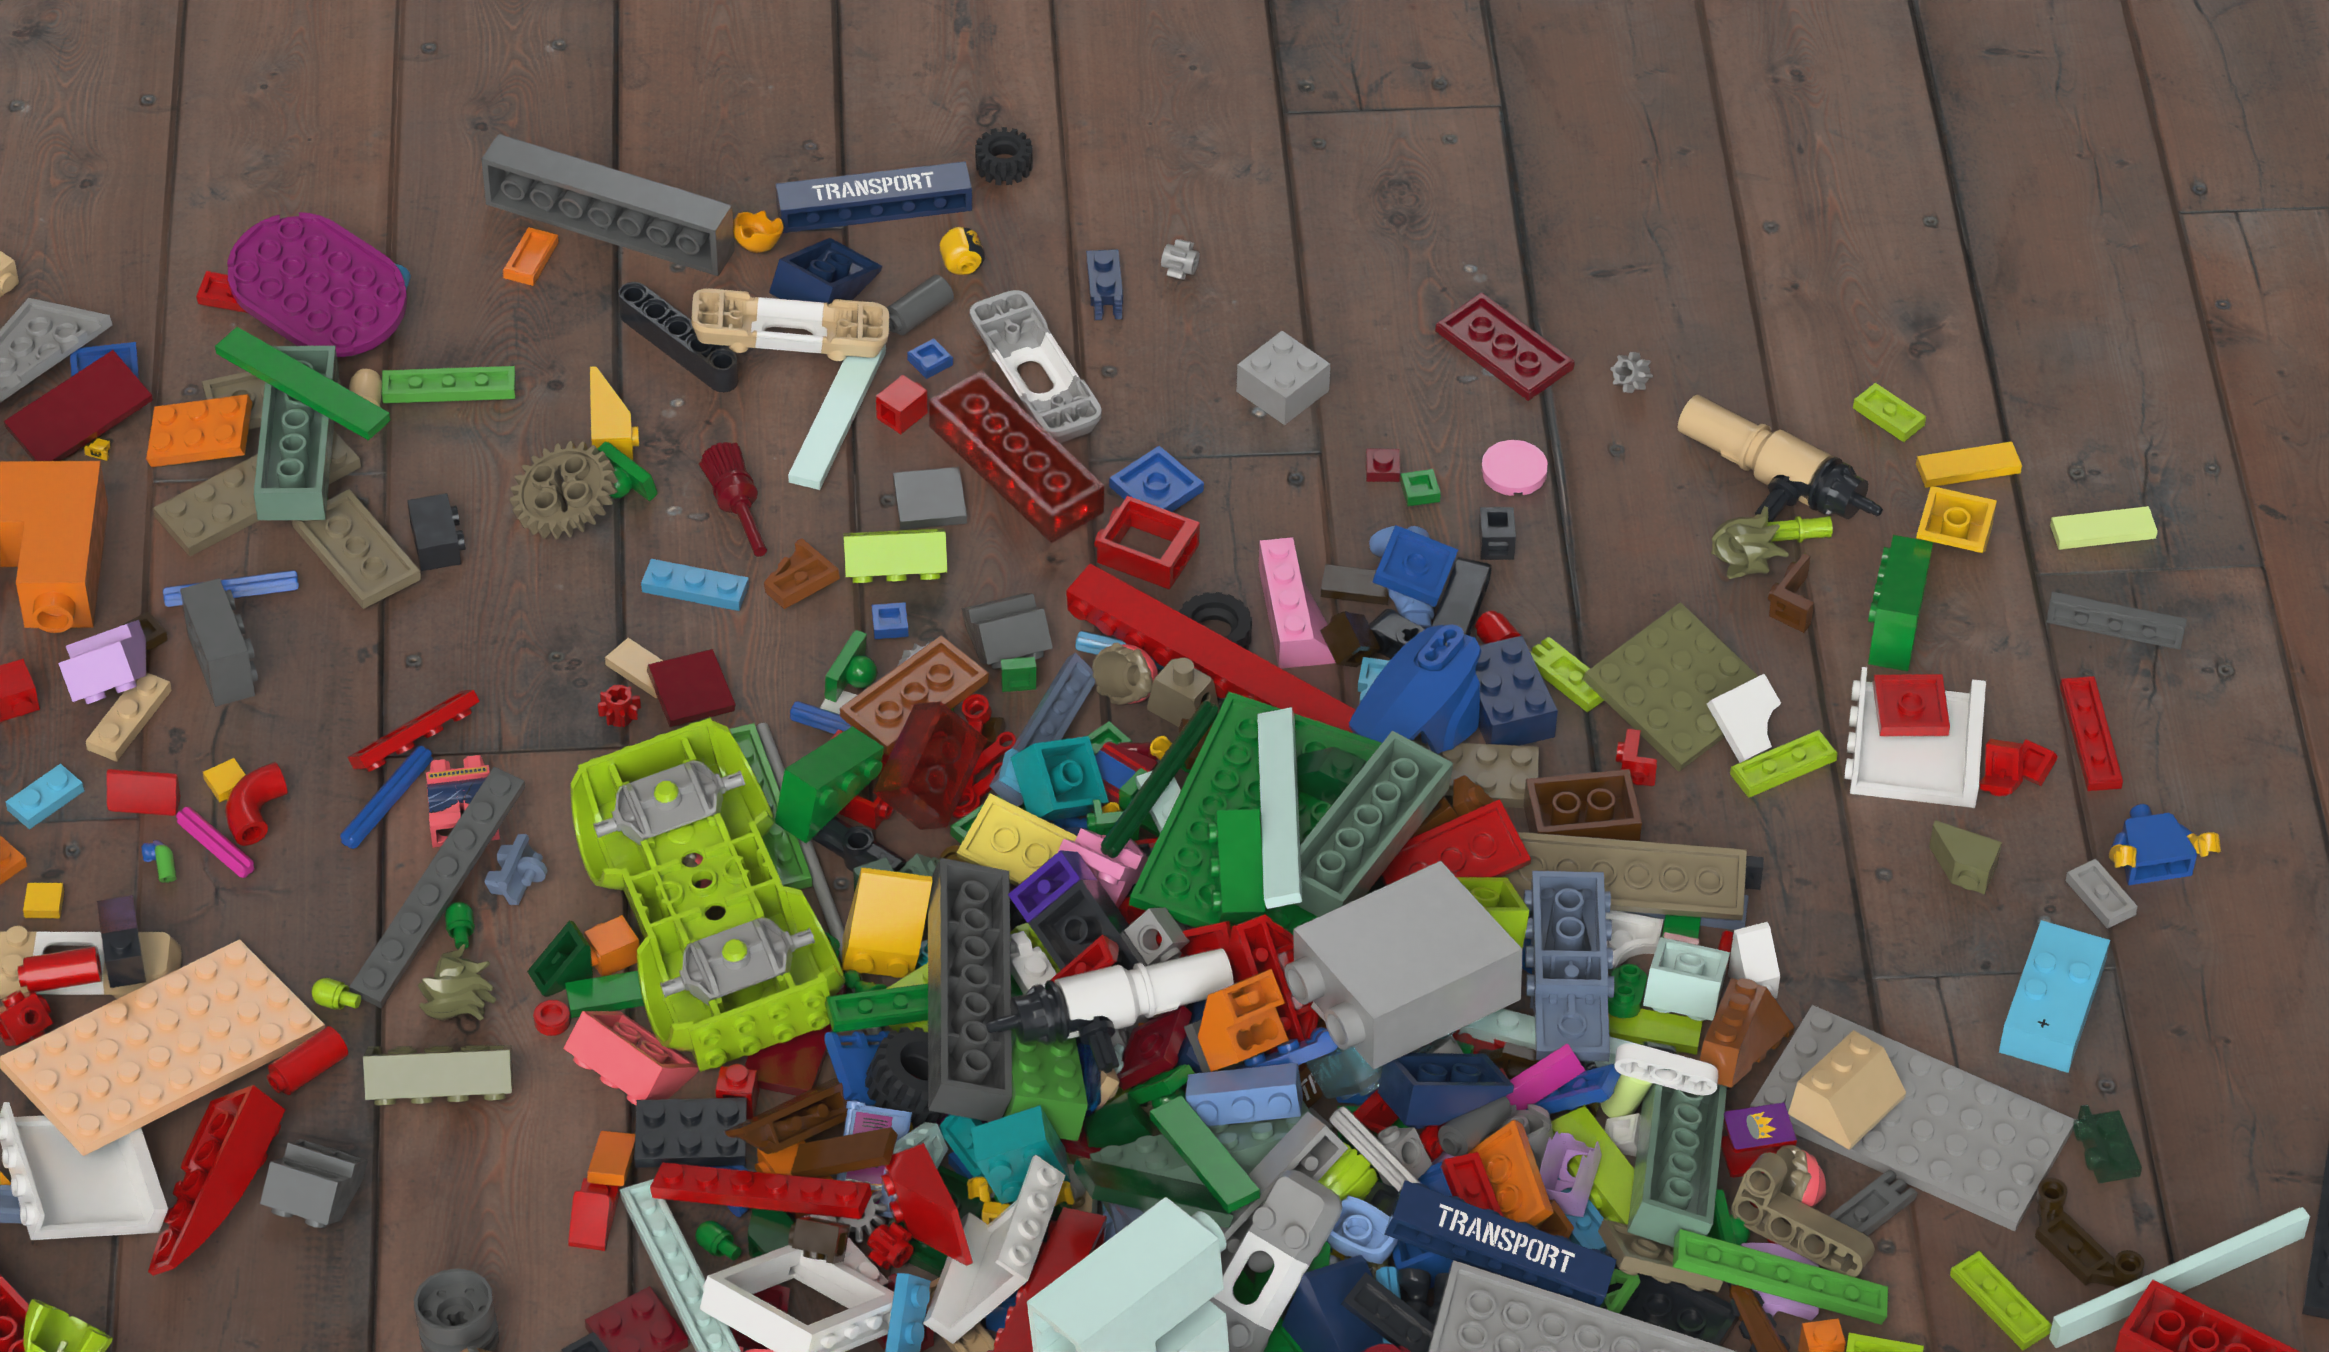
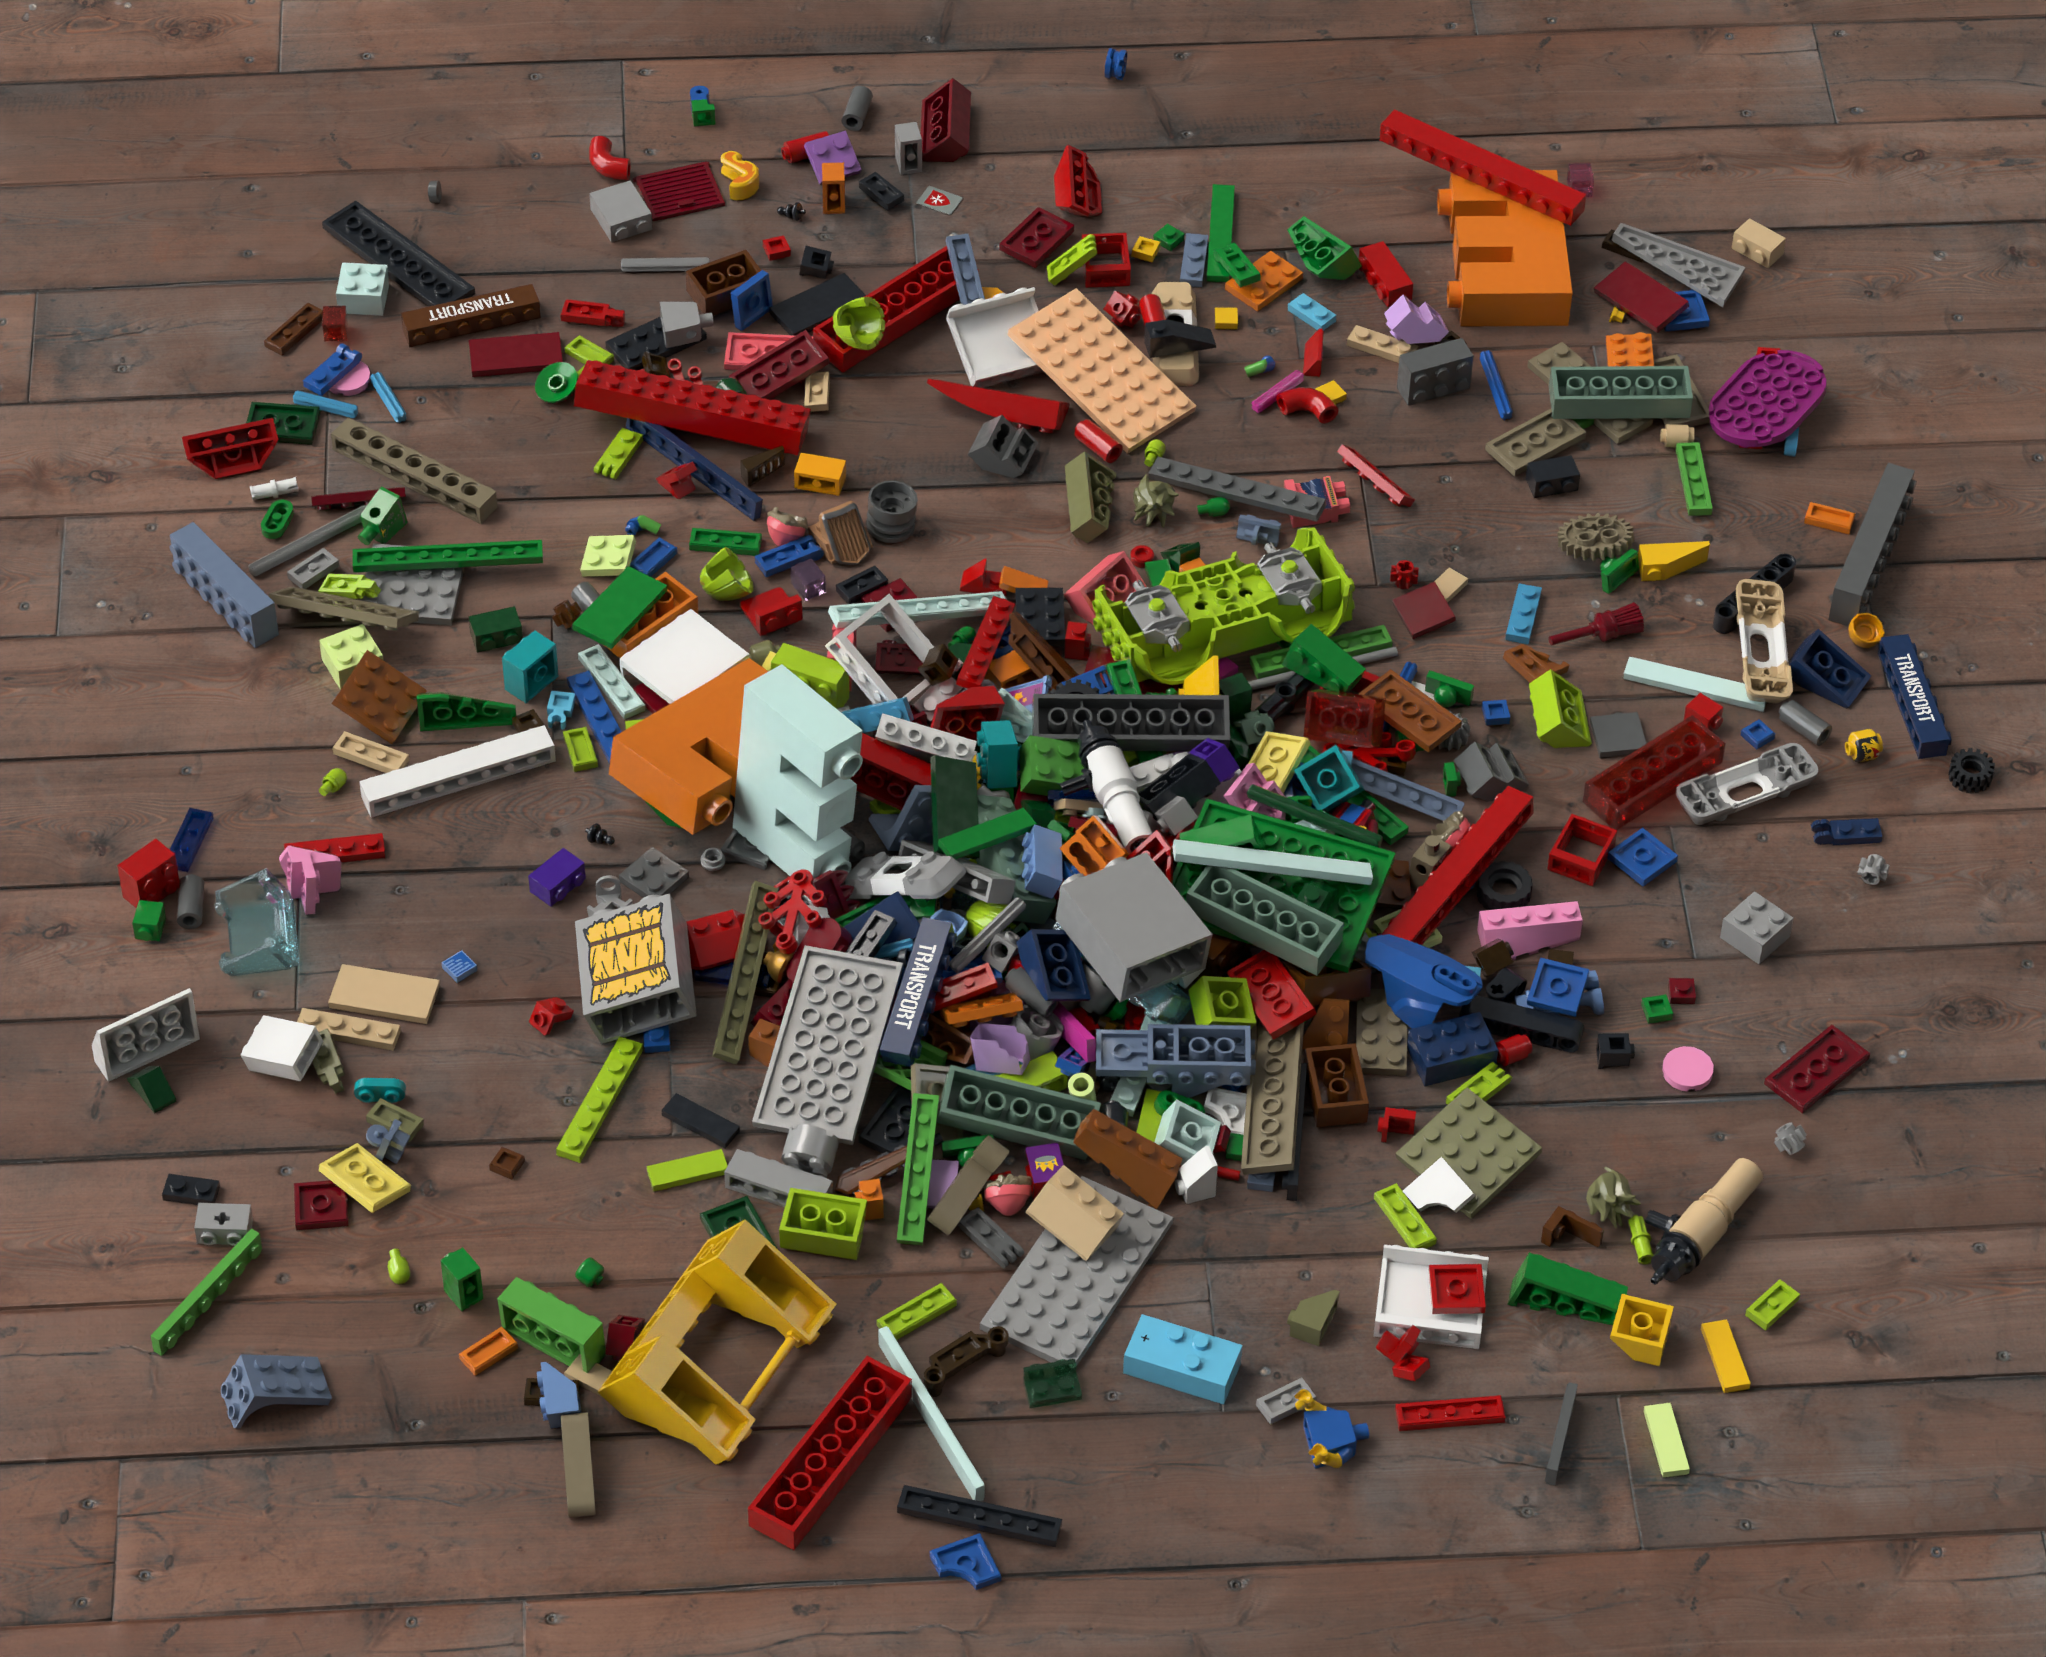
camera: 90 degrees right, 0 degrees up
(302, 383) = (1650, 381): green tile -> none
(386, 797) = (1320, 468): blue axle -> none
(845, 1153) = (1004, 673): reddish brown tile -> none
(1098, 955) = (1147, 777): red slope -> none
(1650, 1066) = (1075, 1093): white beam -> none

